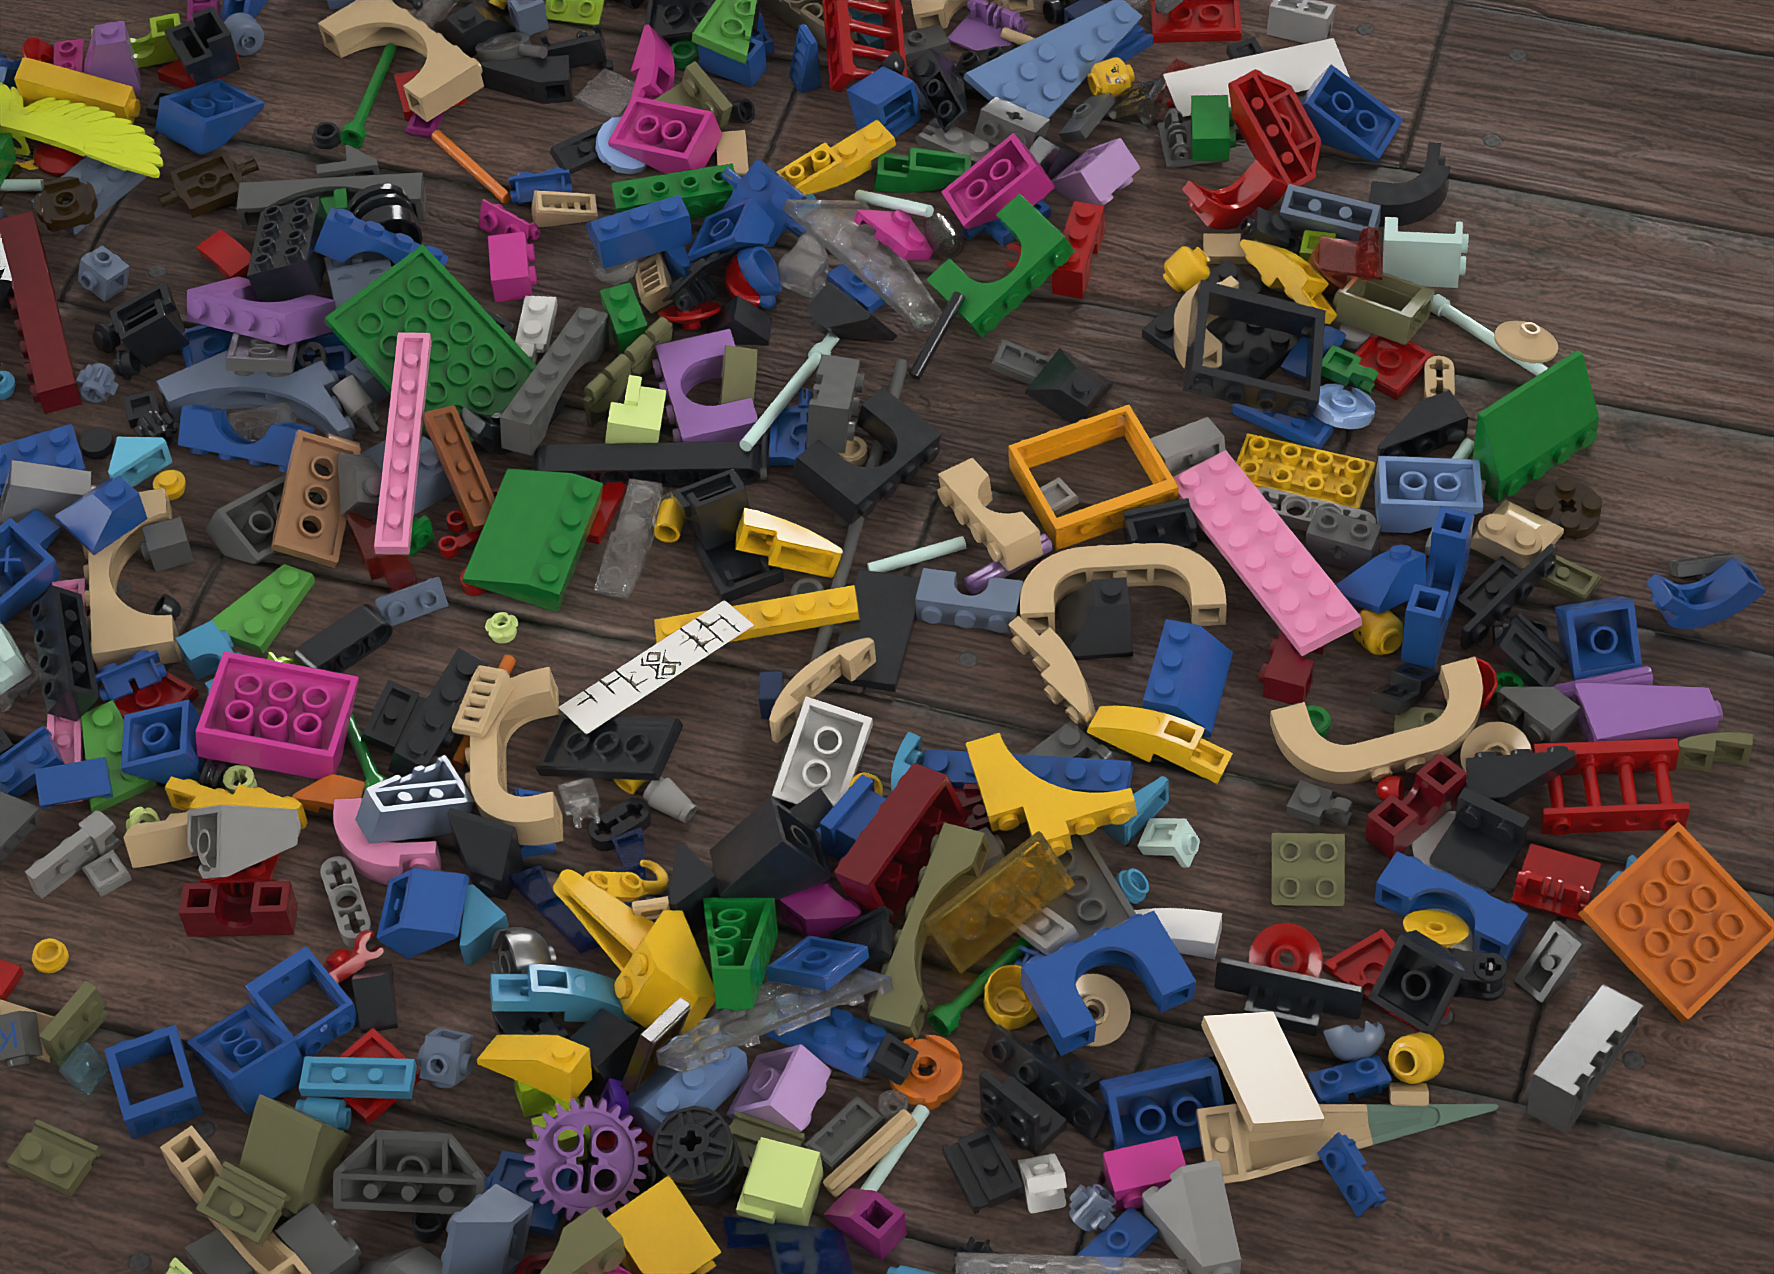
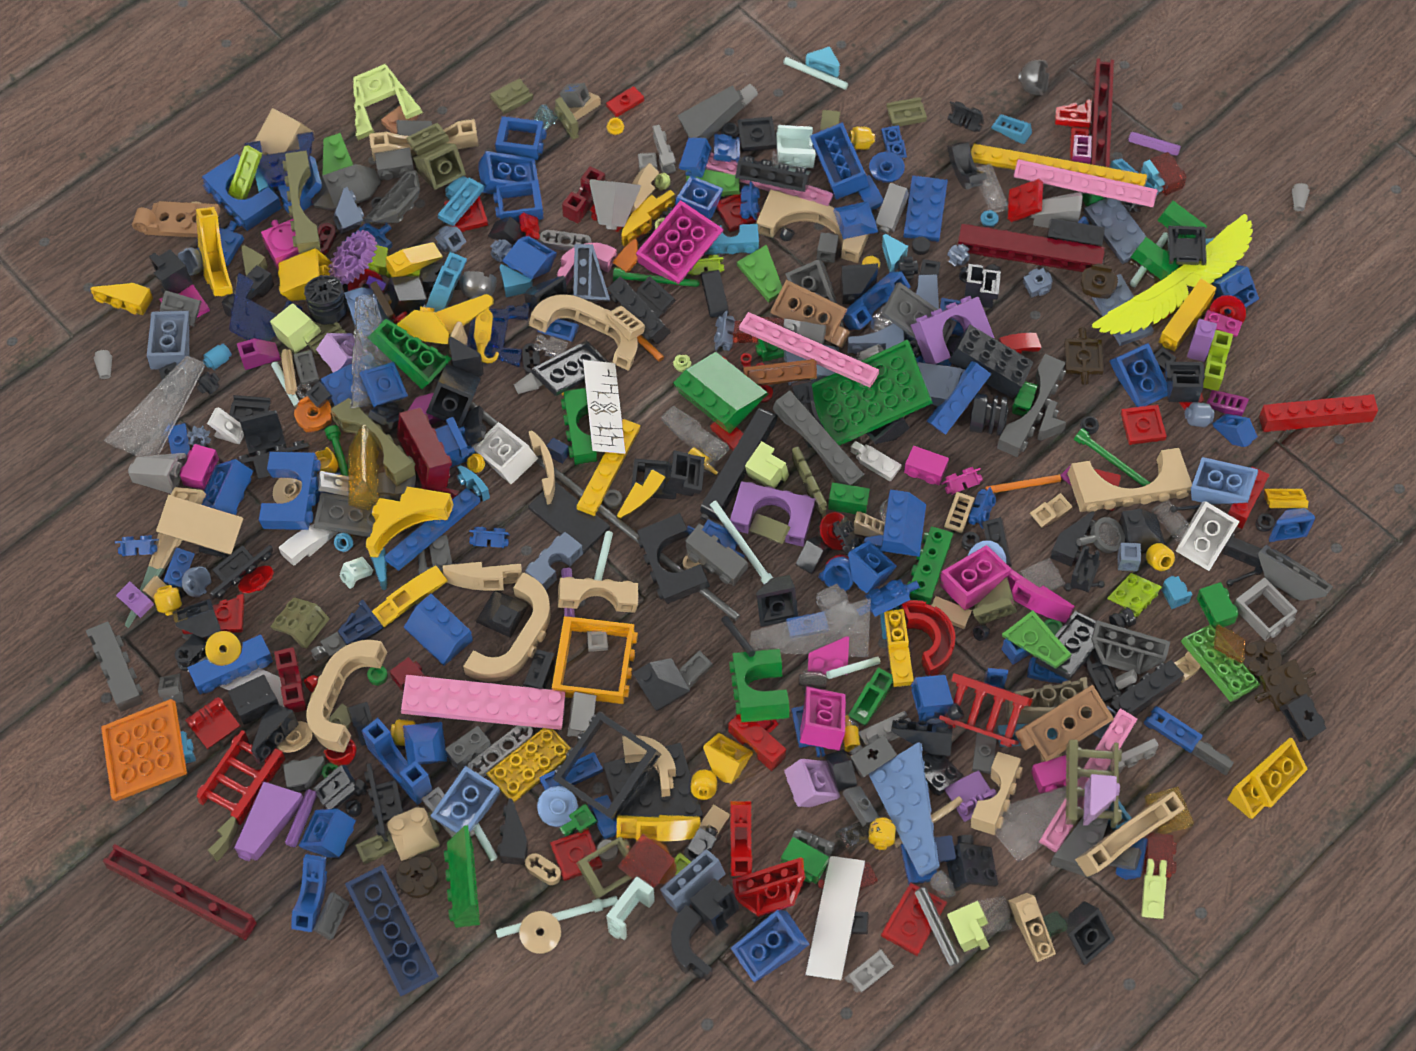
camera: 115 degrees right, 10 degrees up
(225, 466) = (857, 281): none -> black slope
(293, 83) = (1143, 424): none -> red plate
(424, 973) = (500, 249): none -> sand blue gear
(497, 123) = (1051, 511): none -> tan slope
(601, 179) = (969, 535): none -> black bush
(739, 677) = (577, 407): none -> green arch
(794, 130) = (938, 627): none -> red brick
(976, 697) = (497, 537): none -> blue hinge
(1125, 265) = (726, 757): none -> yellow slope
(1253, 785) = (359, 625): none -> dark blue wing
(1346, 171) = (715, 905): none -> black plate
(1449, 1111) = (135, 599): none -> medium lavender plate
(1664, 489) = (391, 930): none -> dark blue slope

